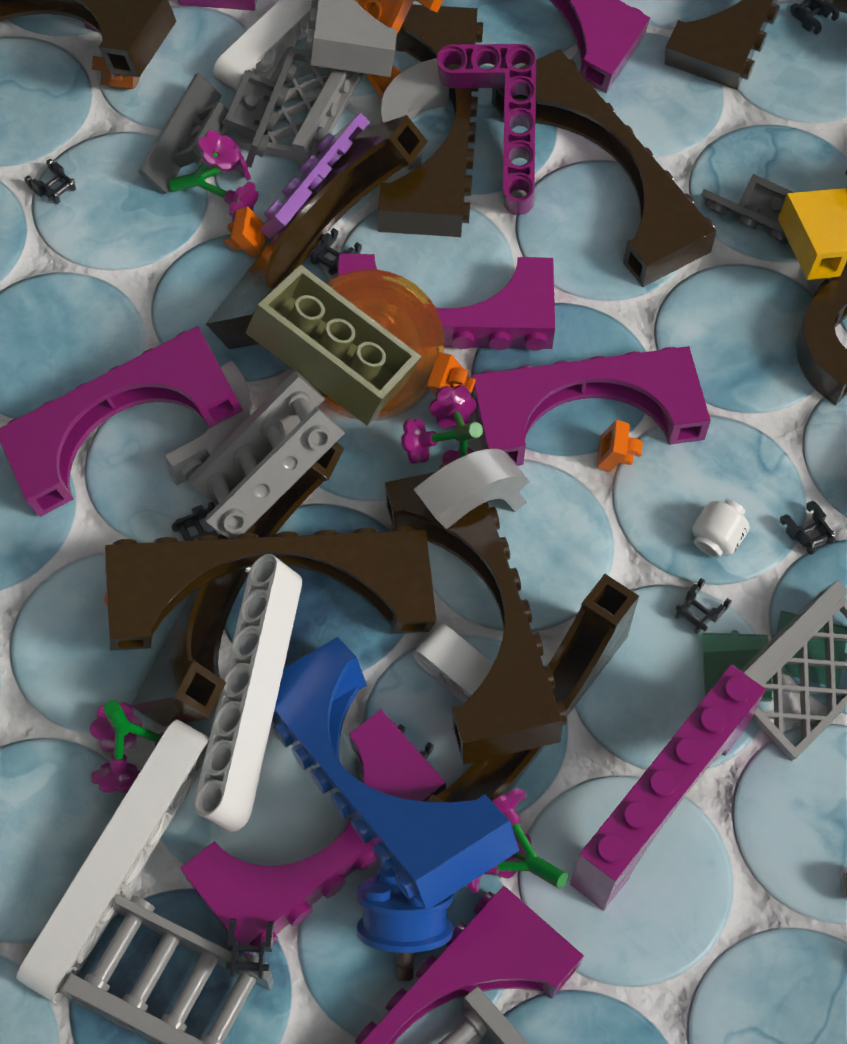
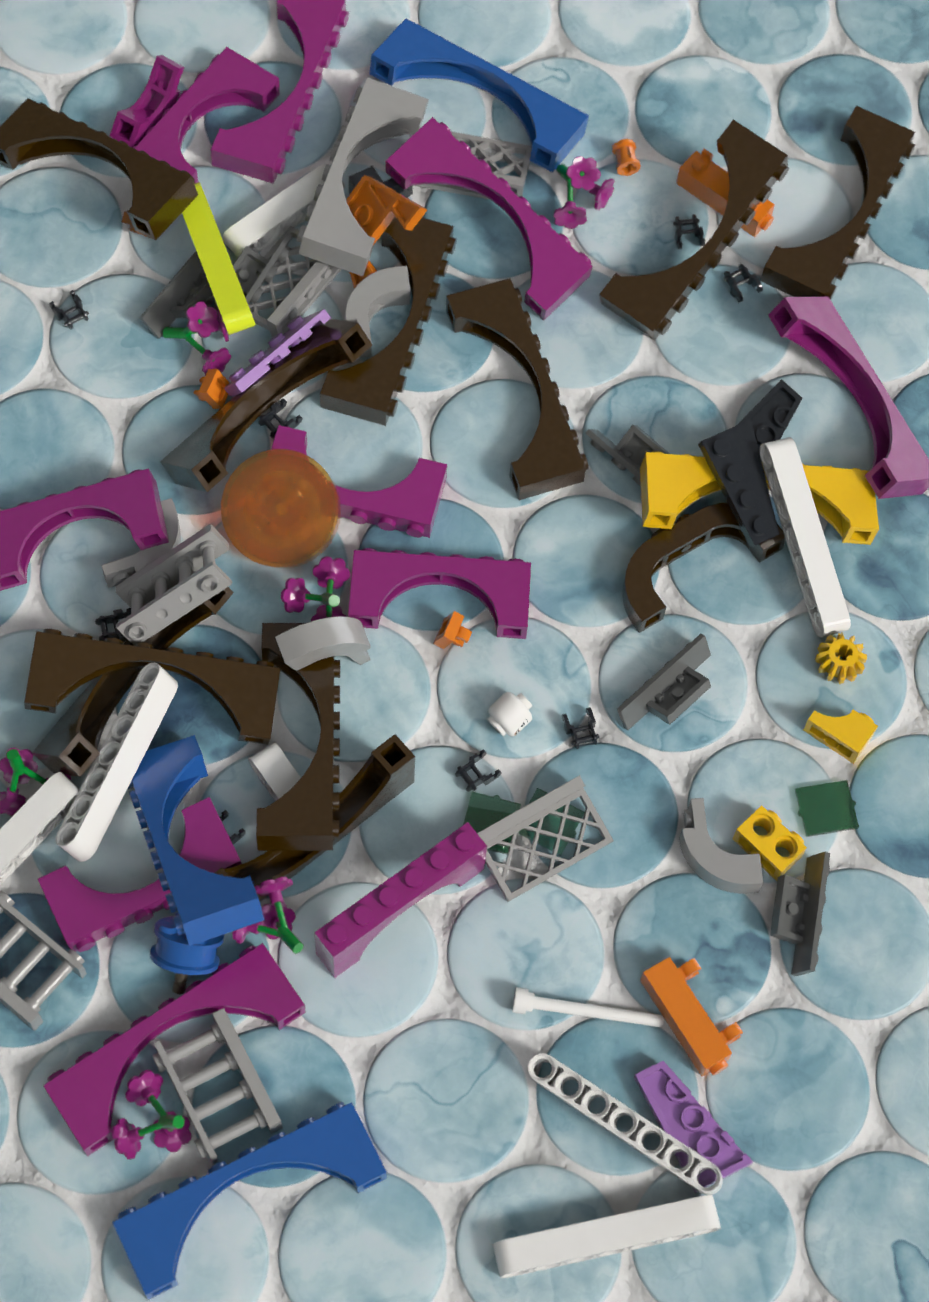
camera: 10 degrees right, 5 degrees up
(220, 93) = (217, 264): none -> neon yellow beam
(264, 947) = (75, 960): black piece -> none
(332, 344) = (245, 508): olive brick -> none
(448, 373) = (334, 546): orange tile -> none
(516, 112) = (450, 332): magenta beam -> none

